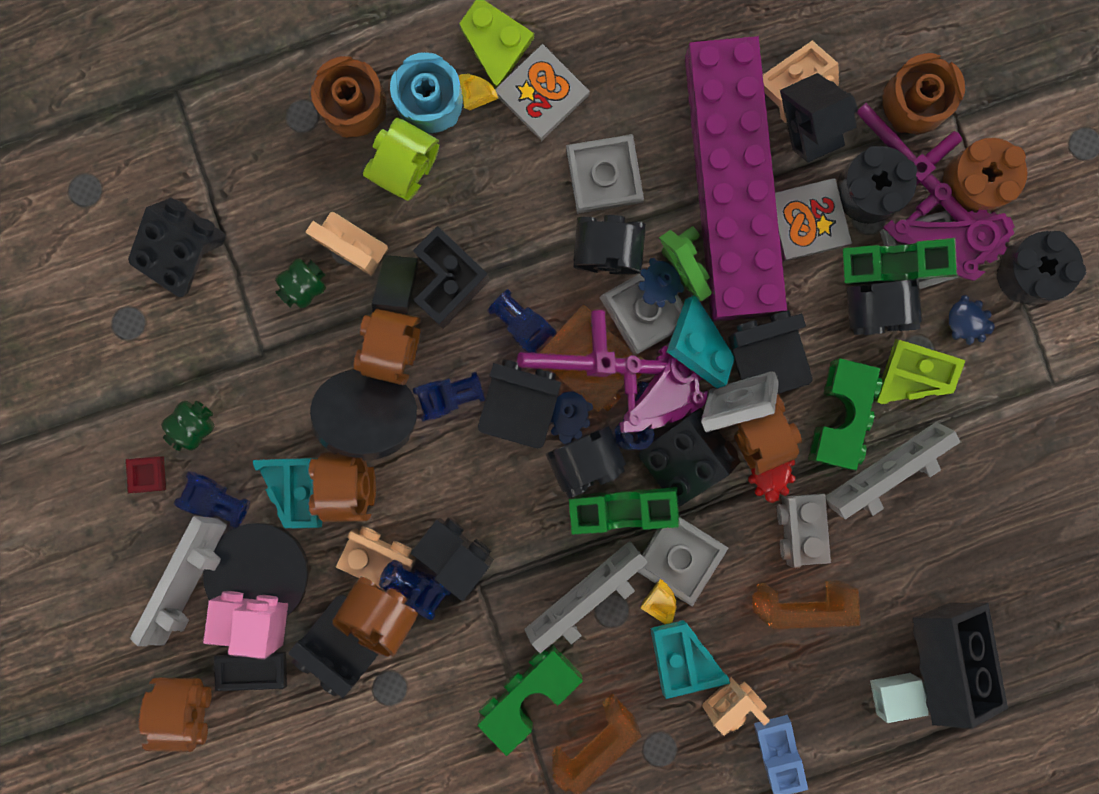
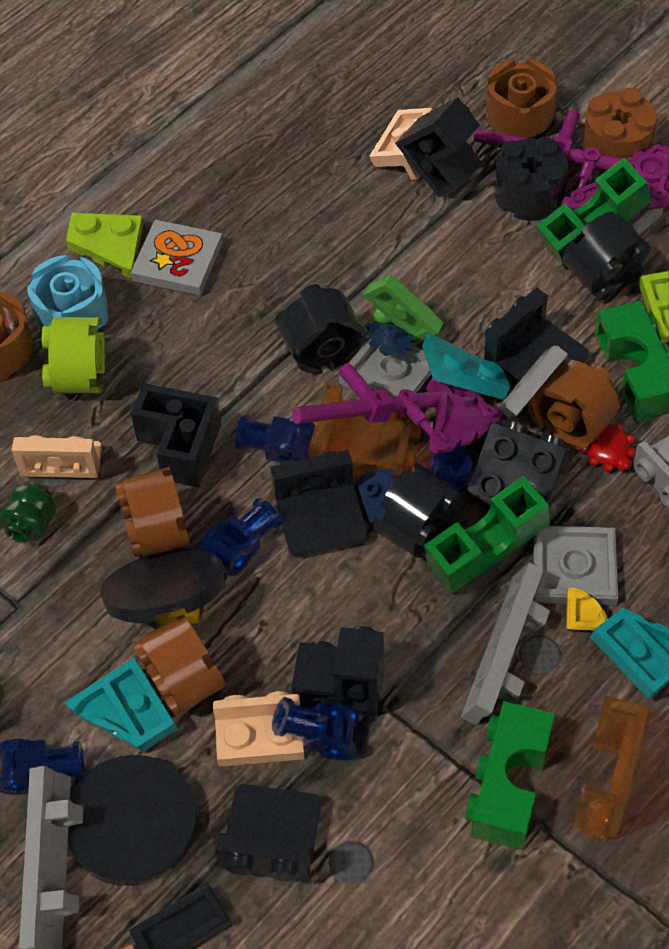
camera: 30 degrees left, 30 degrees down
(246, 625) = (152, 853): bright pink brick -> none
(375, 617) = (292, 763): dark orange brick -> none
(395, 284) = (127, 460): black tile -> none
(476, 91) = (117, 282): yellow tile -> none
(605, 173) = (271, 286): light grey tile -> none
(735, 179) = (402, 231): magenta brick -> none
(811, 220) = (491, 236): light grey tile -> none

